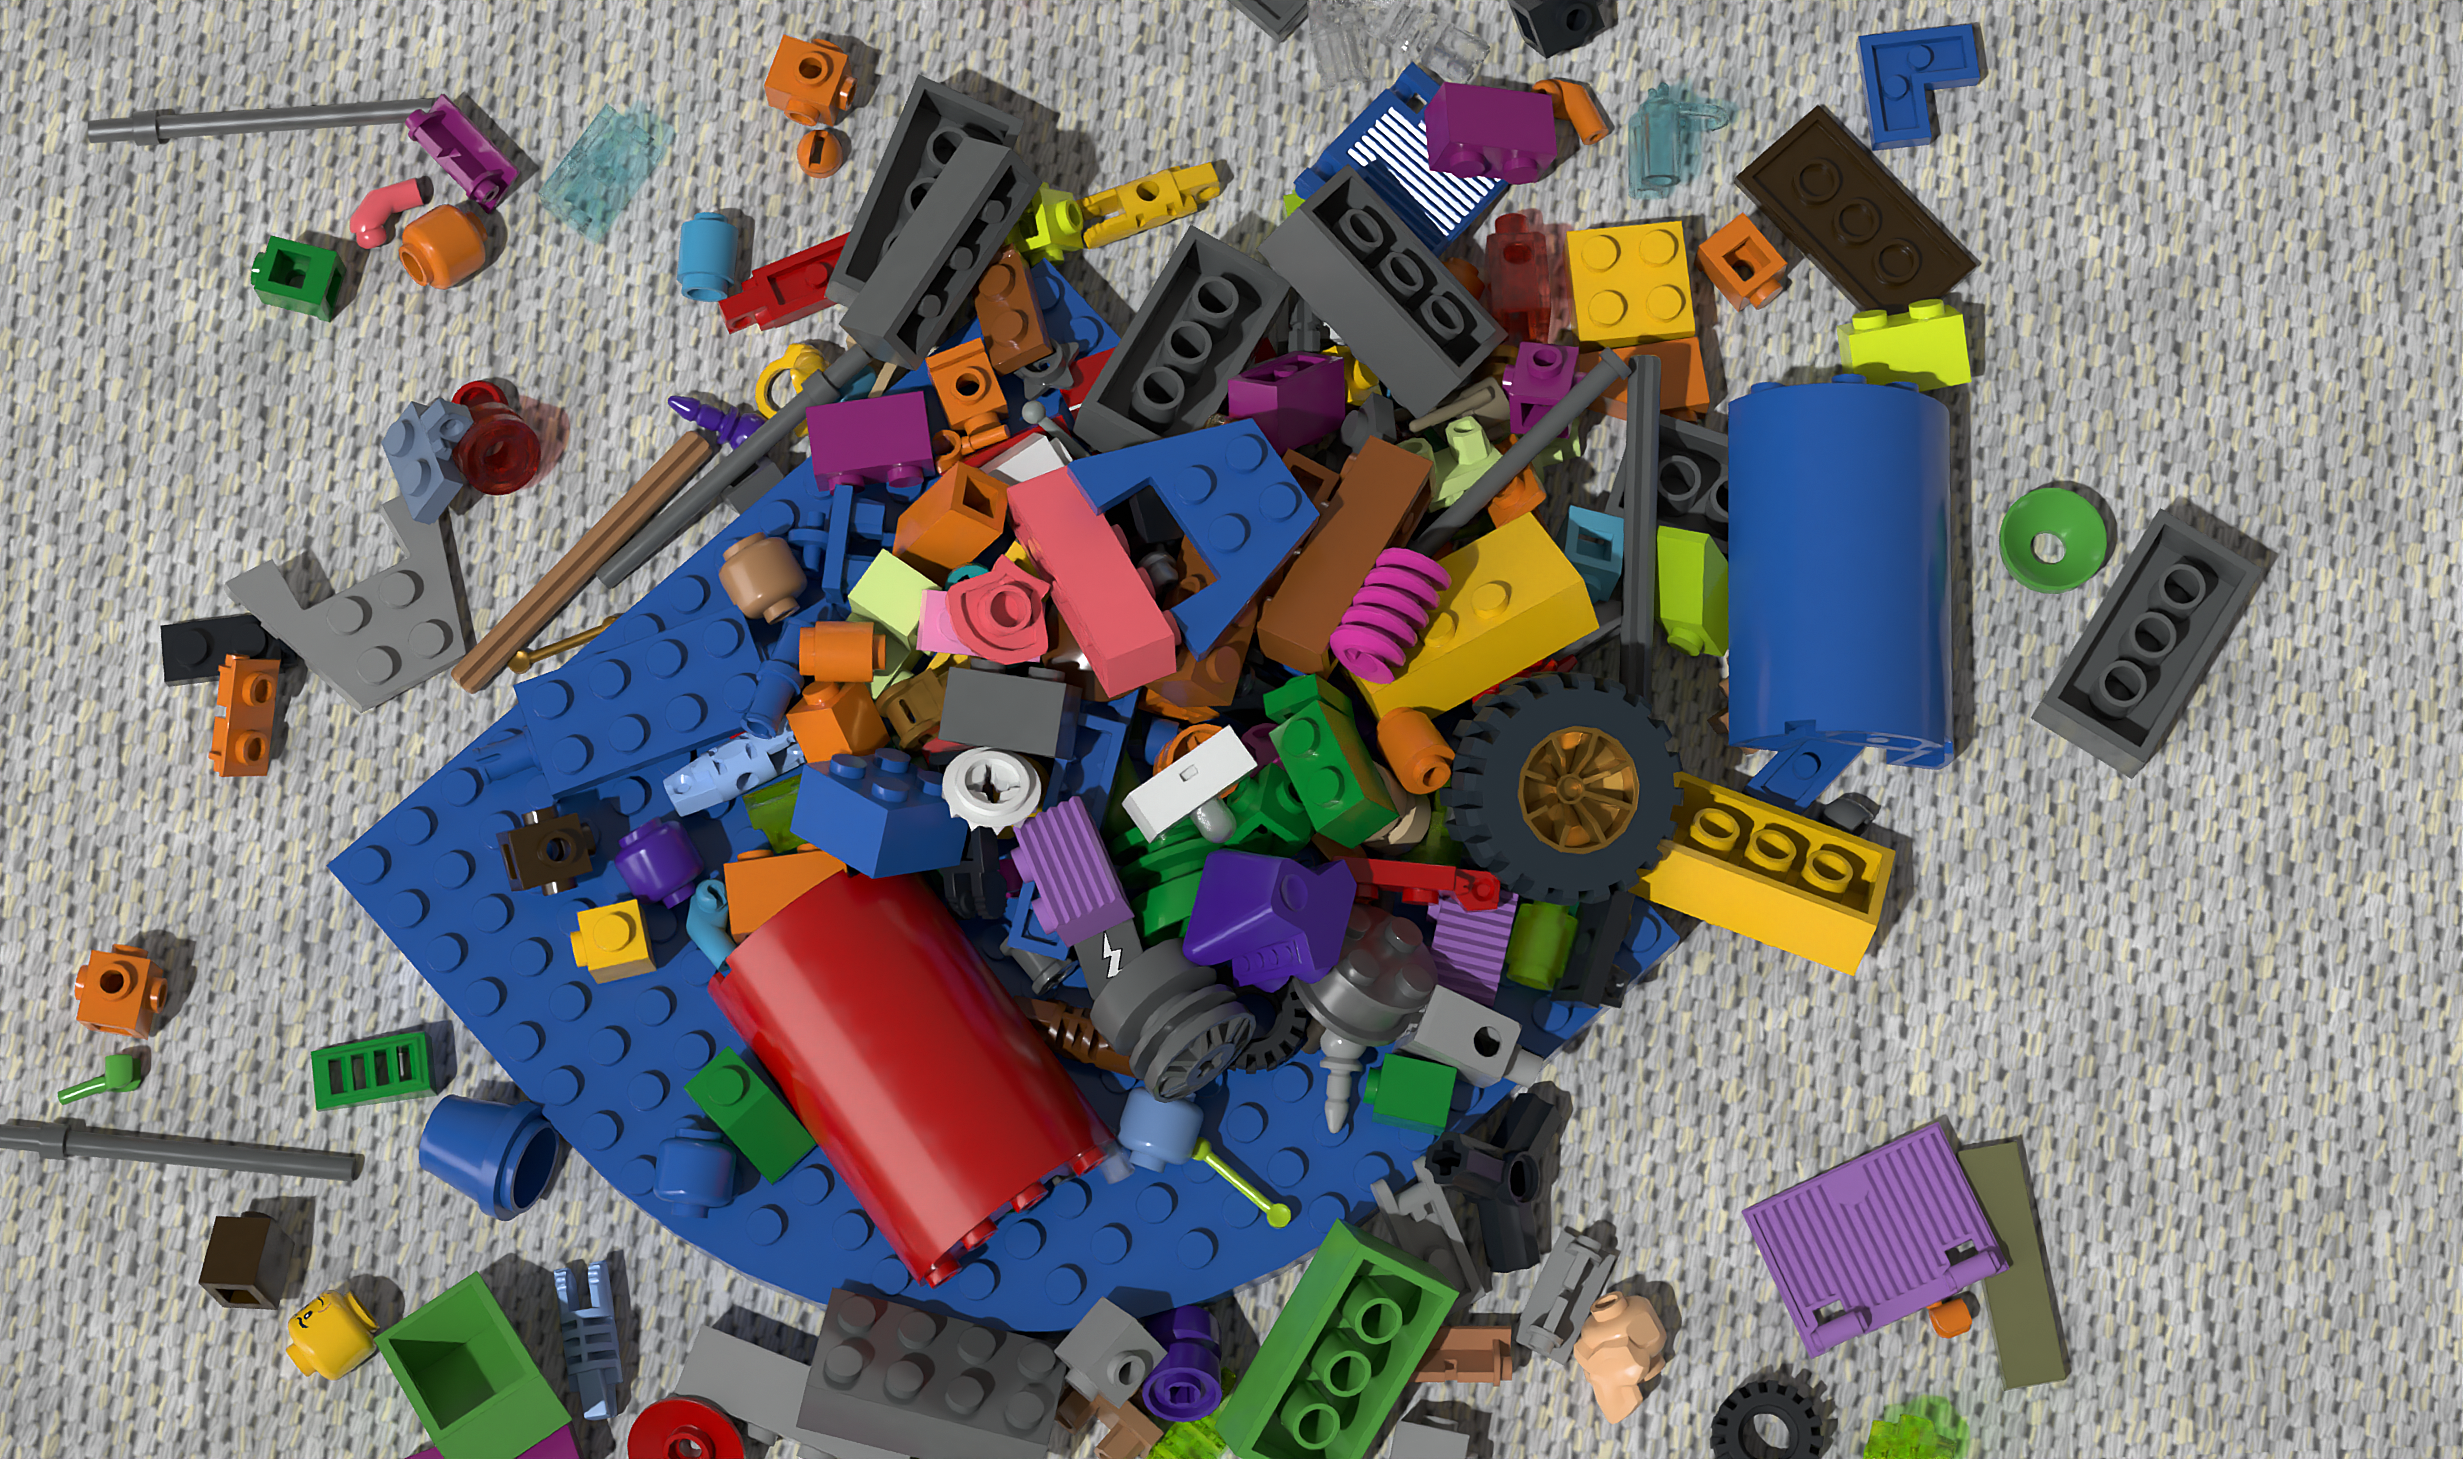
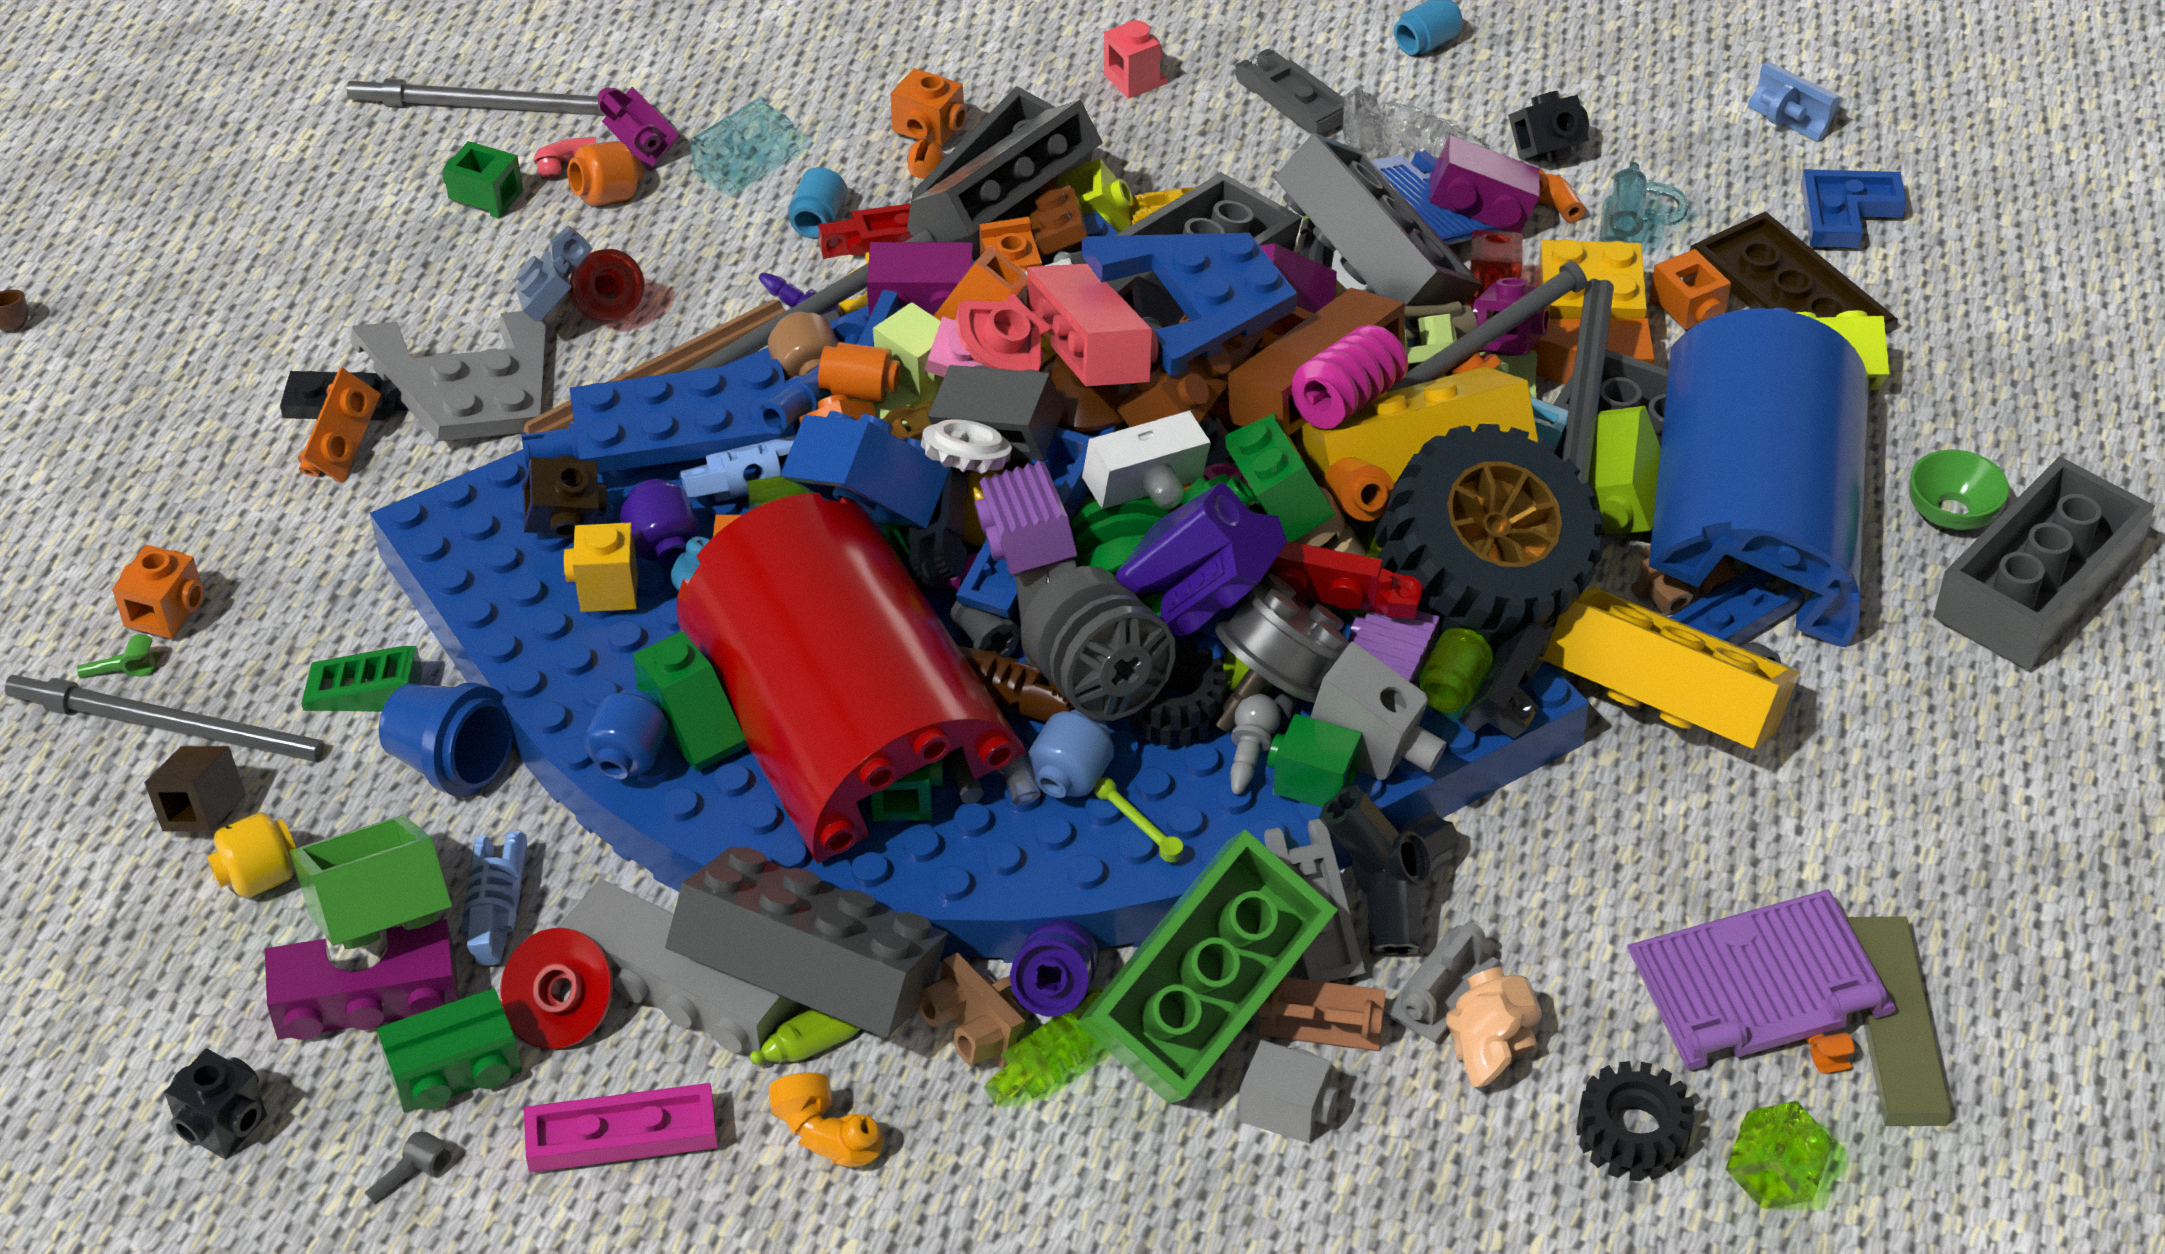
camera: 10 degrees right, 30 degrees down
(1109, 1354) = (984, 926): light grey brick -> none

